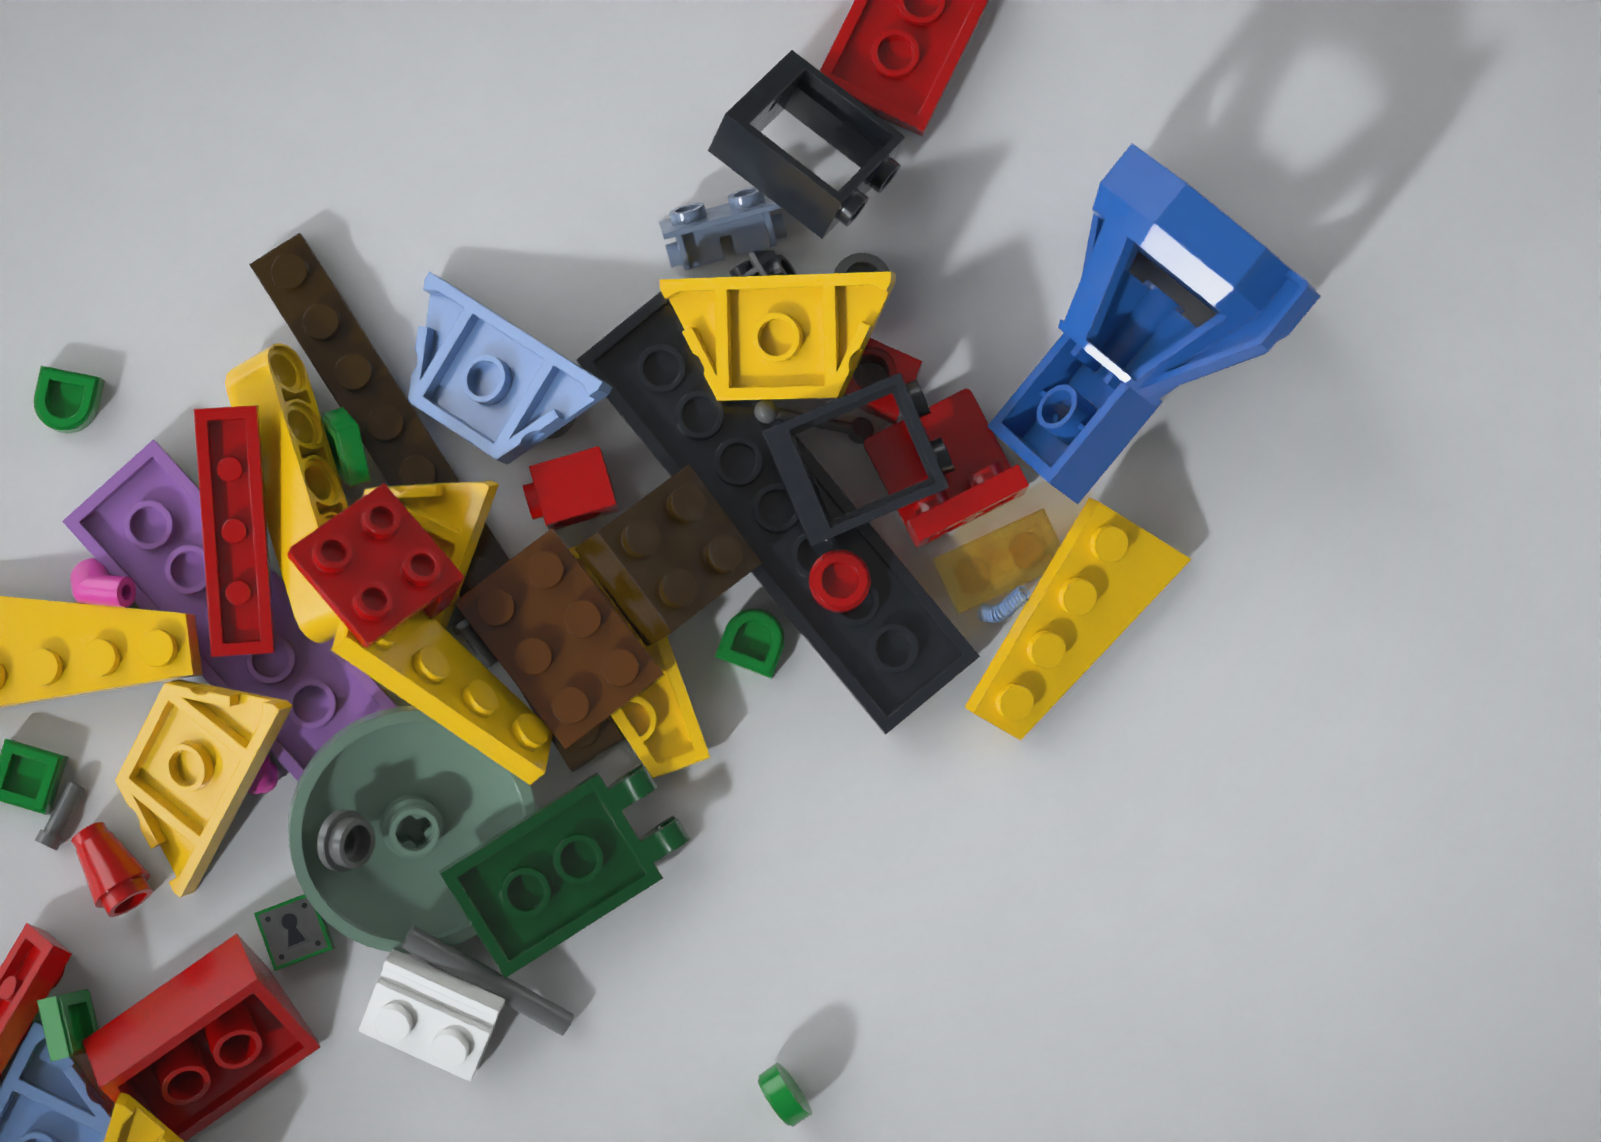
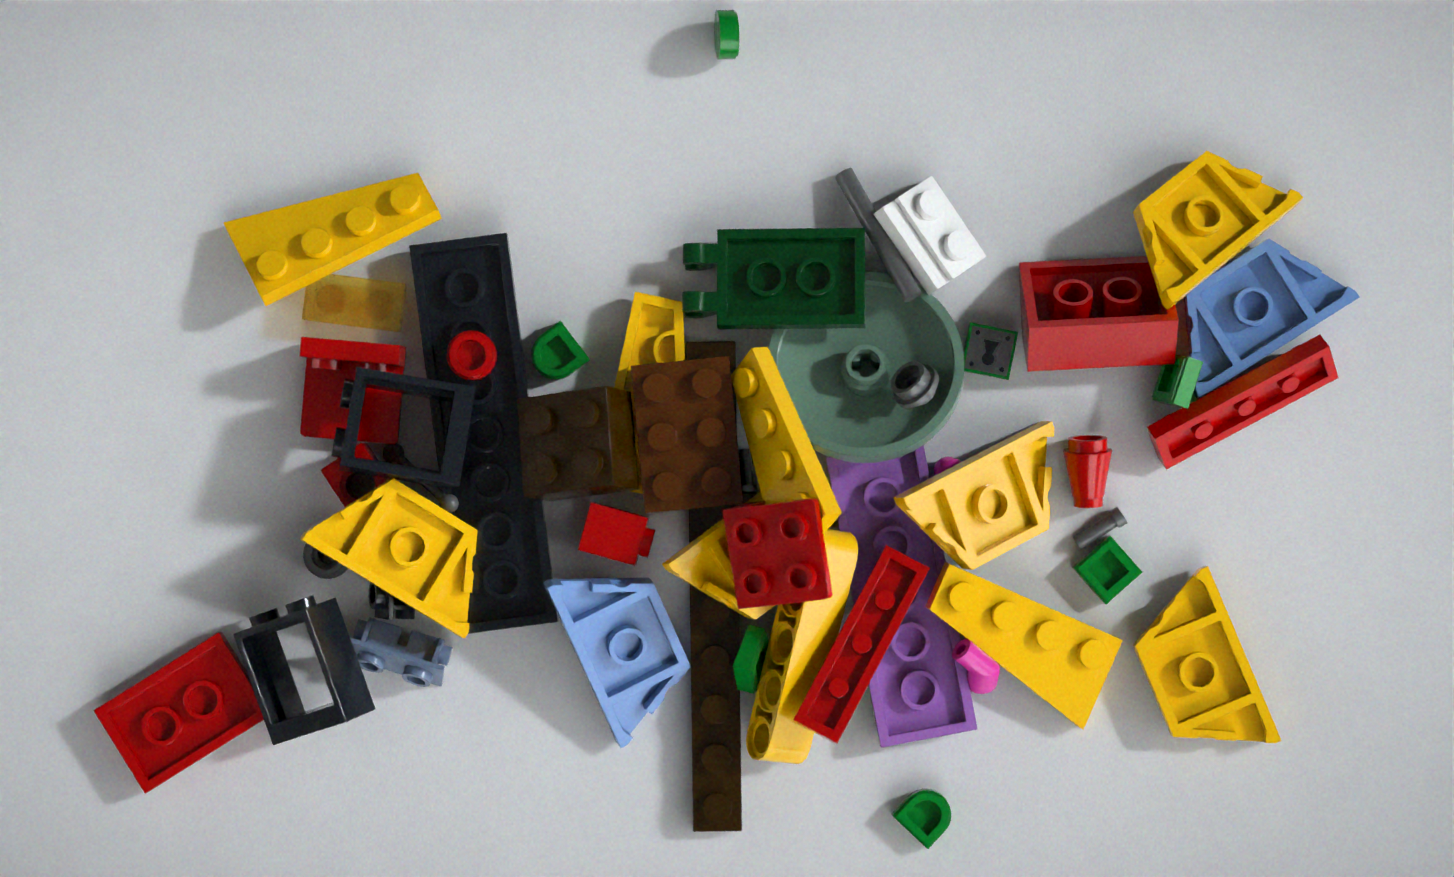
camera: 145 degrees left, 5 degrees up
(1003, 606) = (379, 272): light blue leg -> none
(1129, 338) = (169, 391): blue plate -> none

